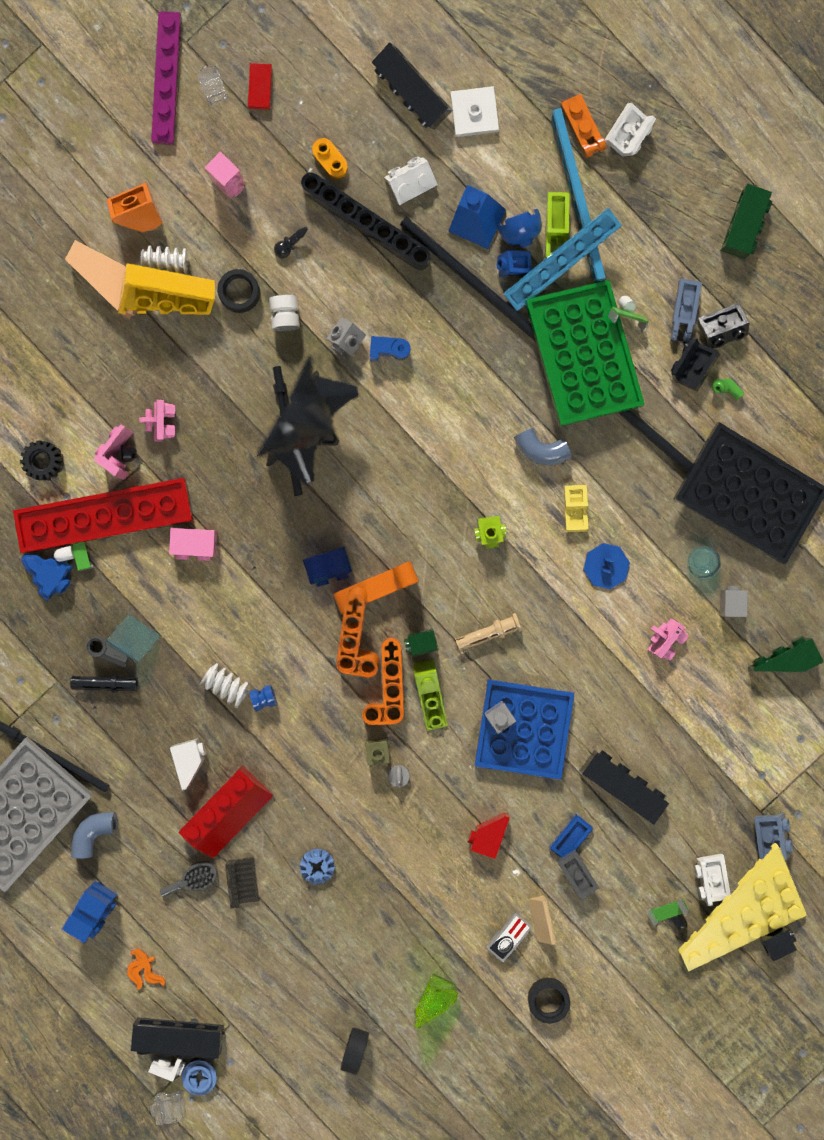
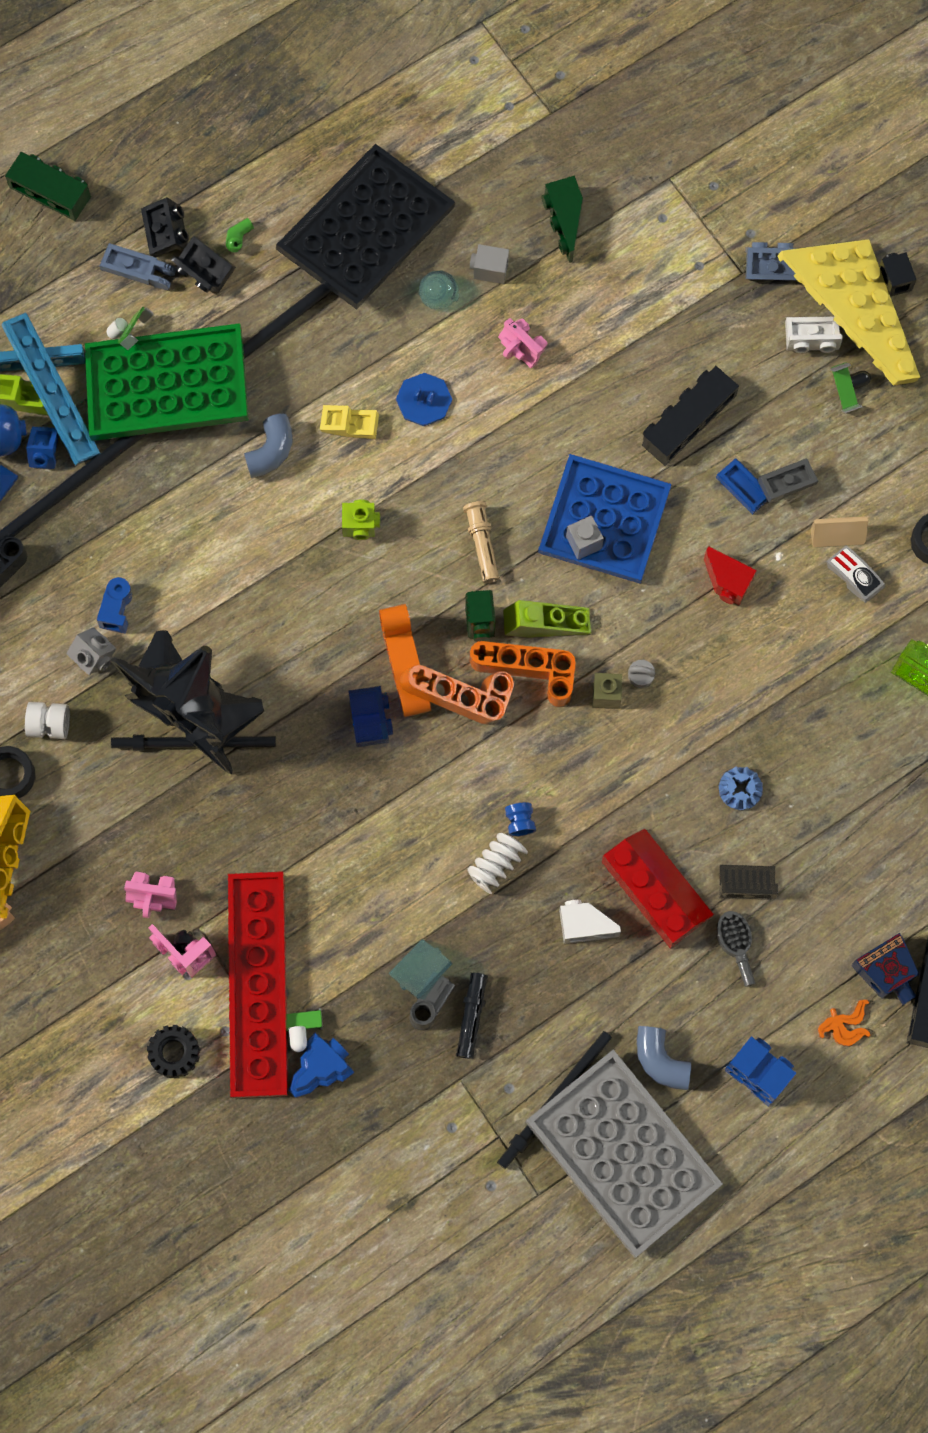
camera: 80 degrees left, 15 degrees down
(189, 1000) = (889, 969): none -> torso
(193, 543) = (312, 875): bright pink brick -> none

